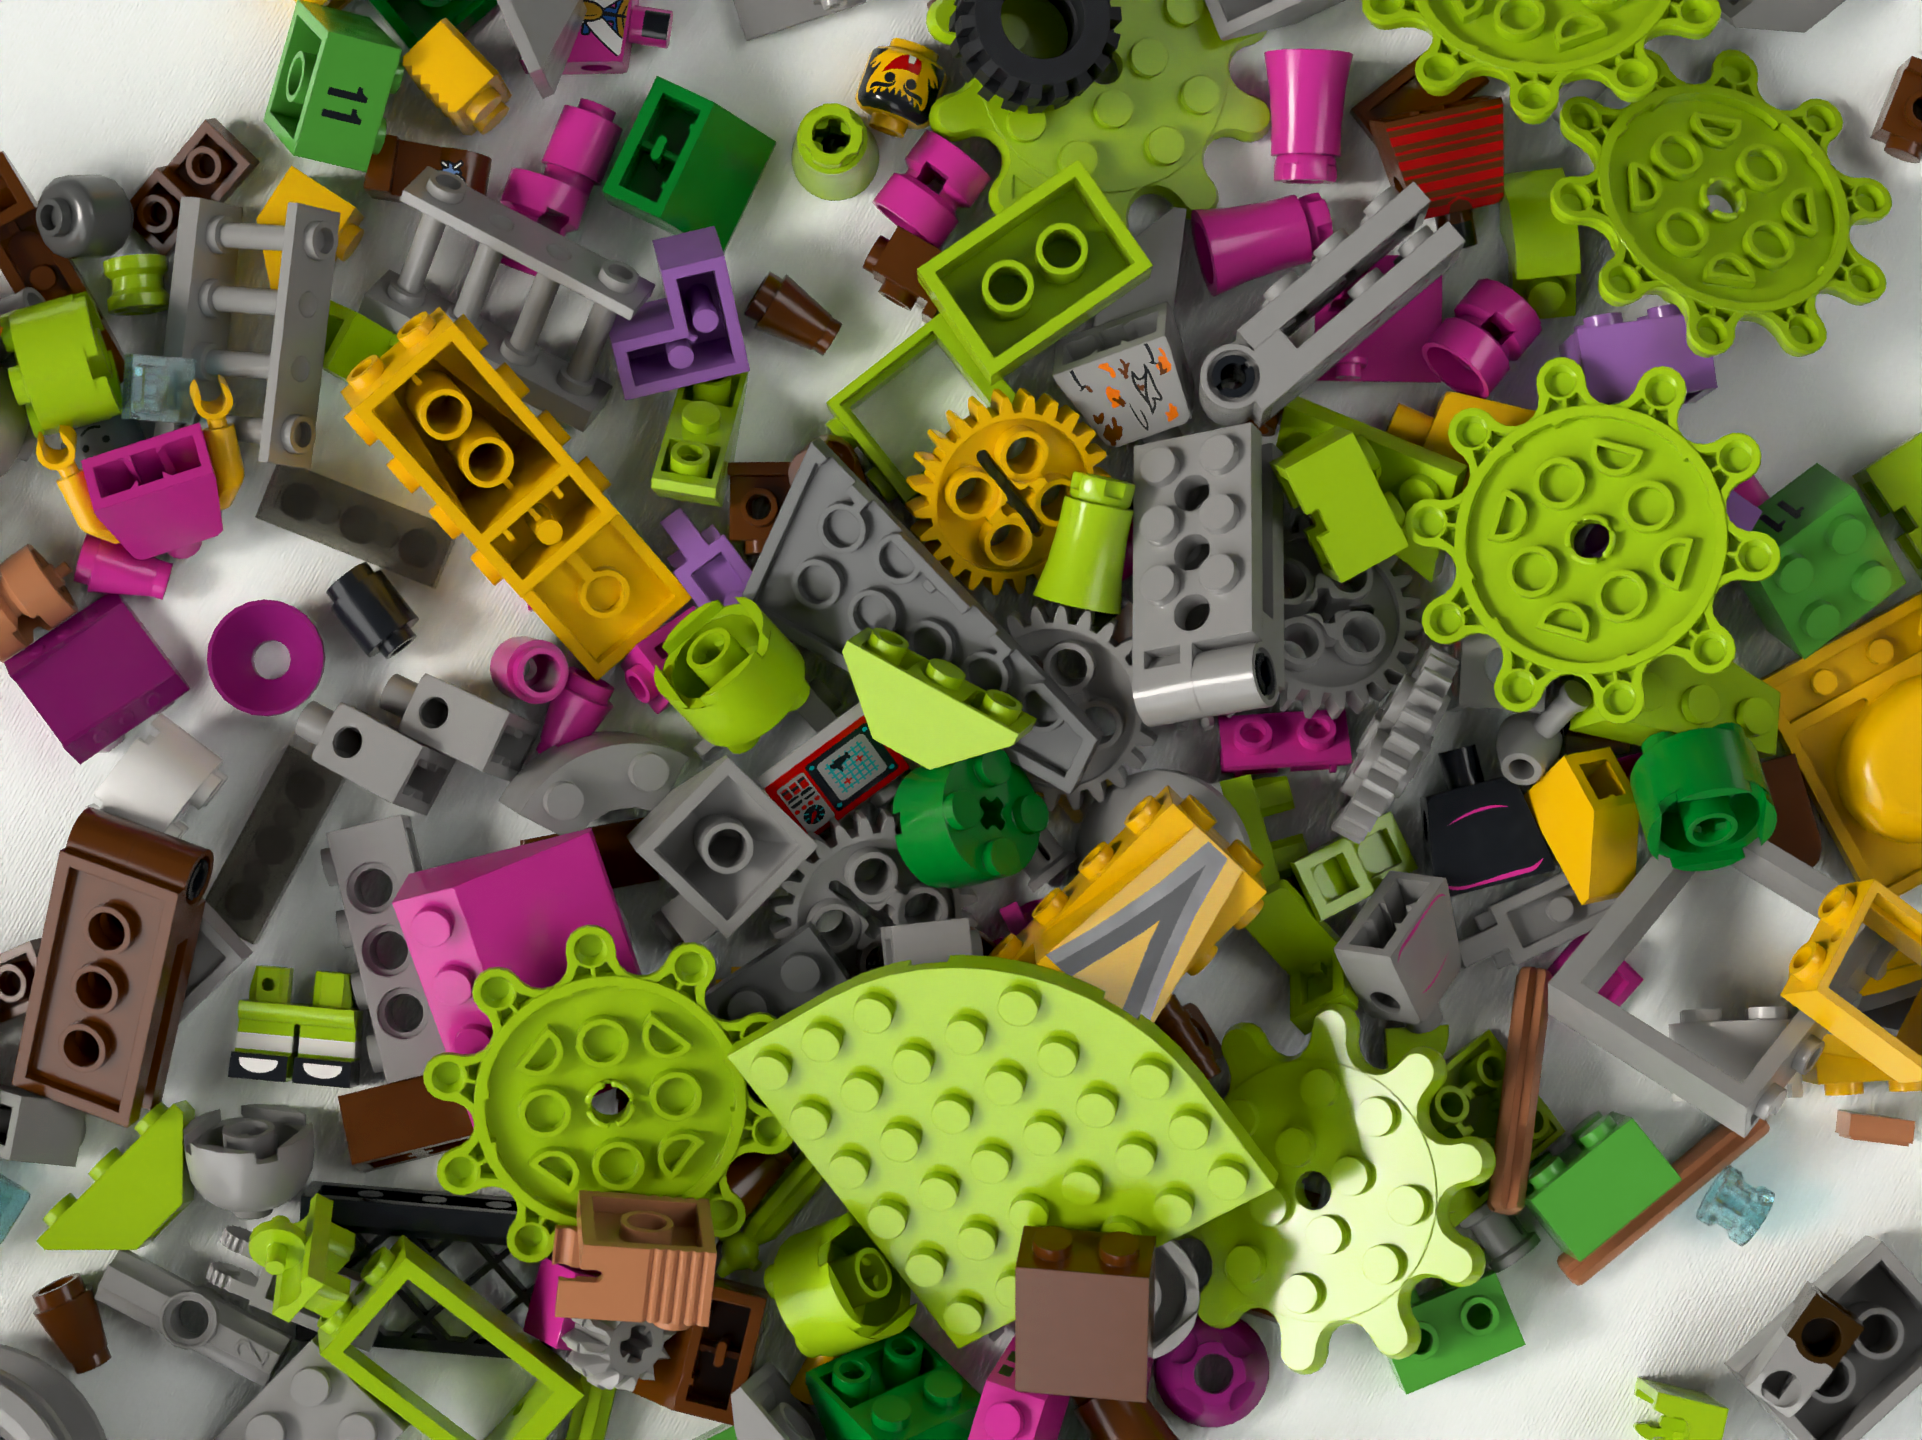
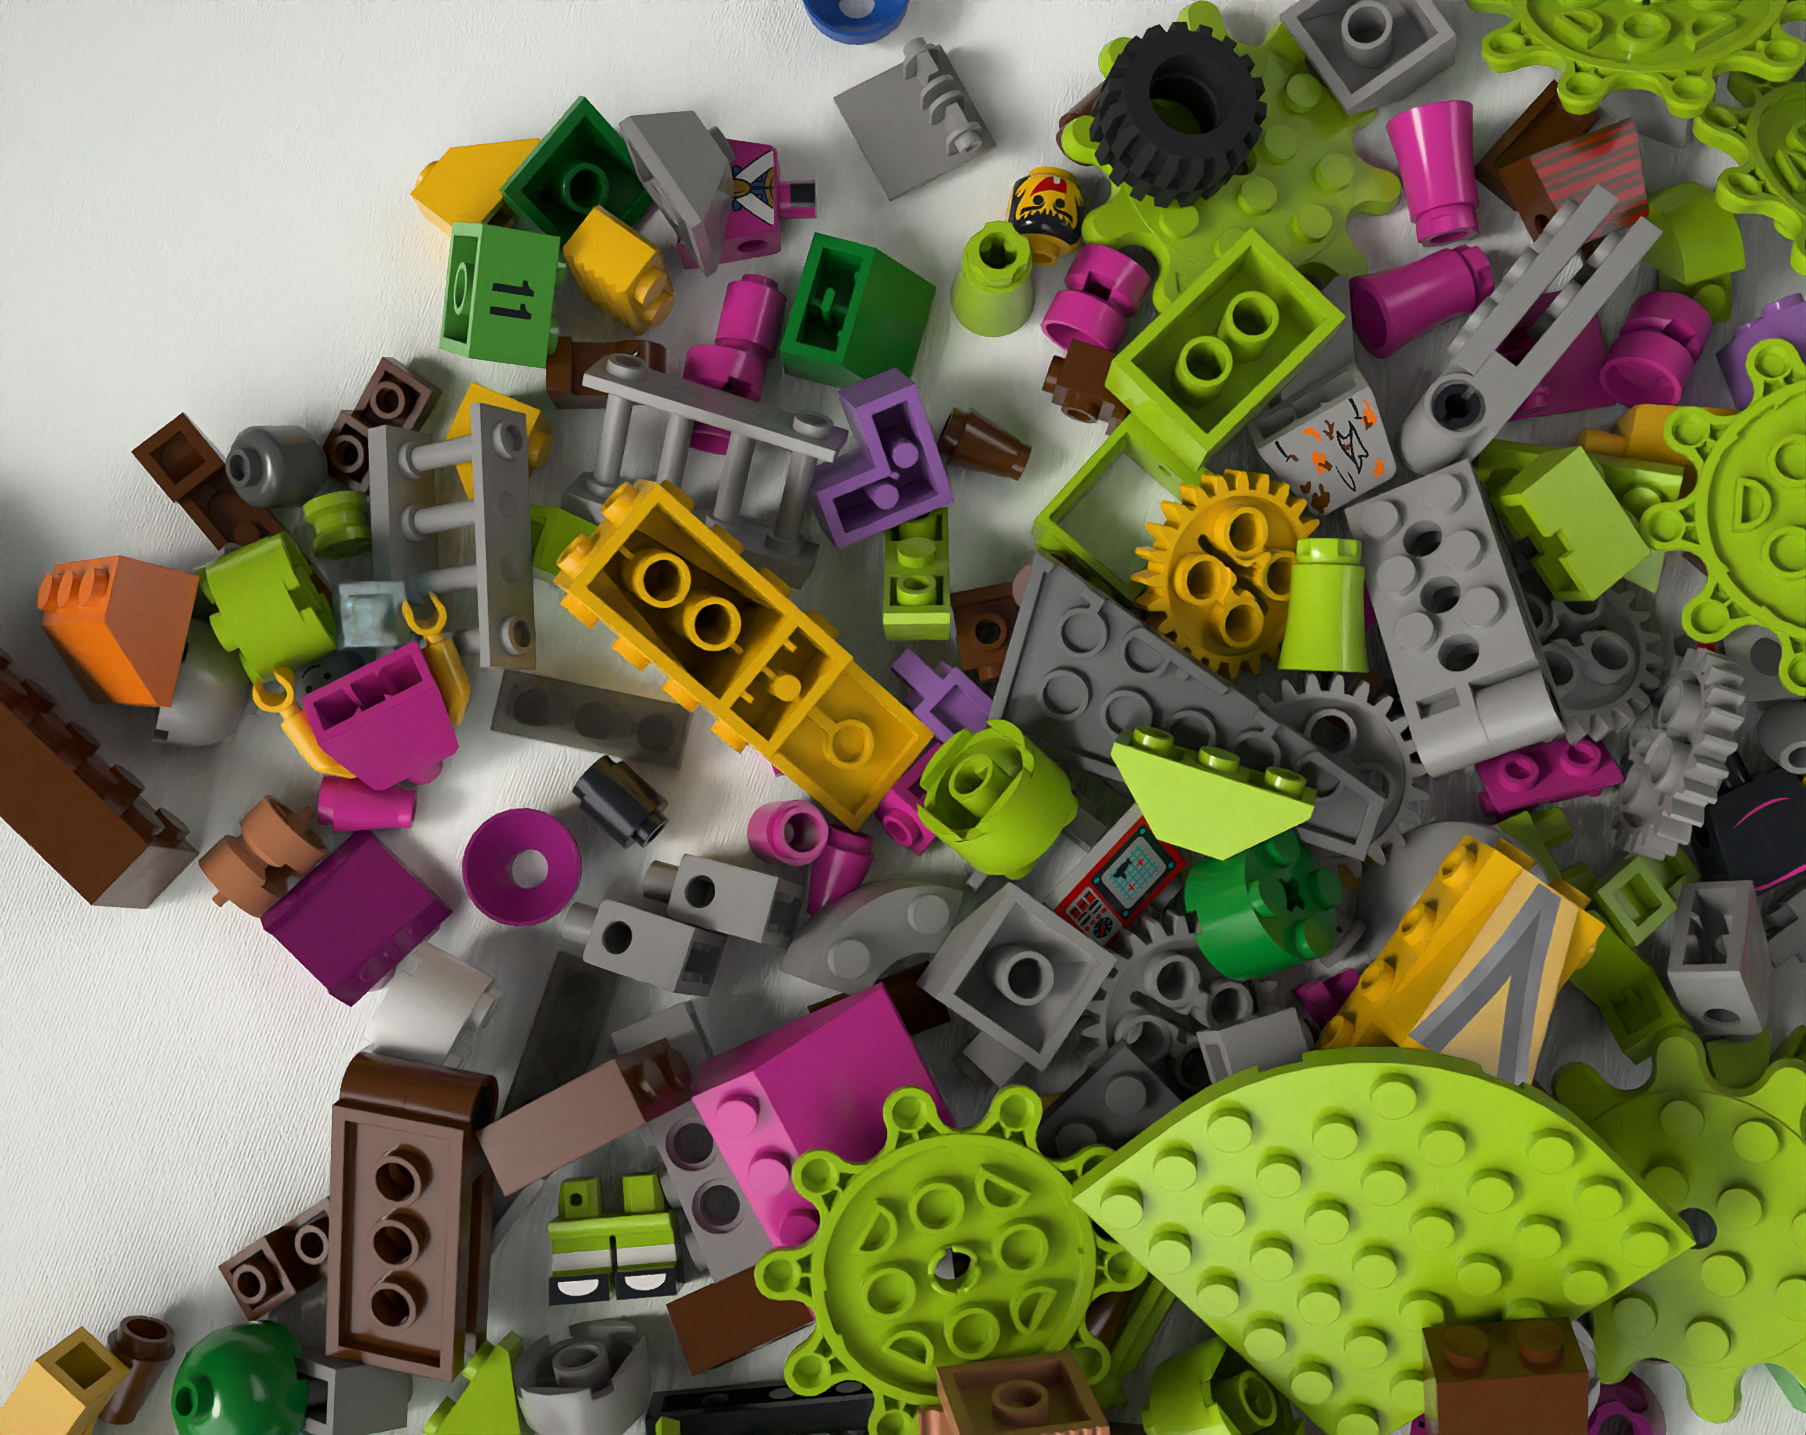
camera: 10 degrees left, 5 degrees down
(293, 902) = (585, 1114): none -> reddish brown brick

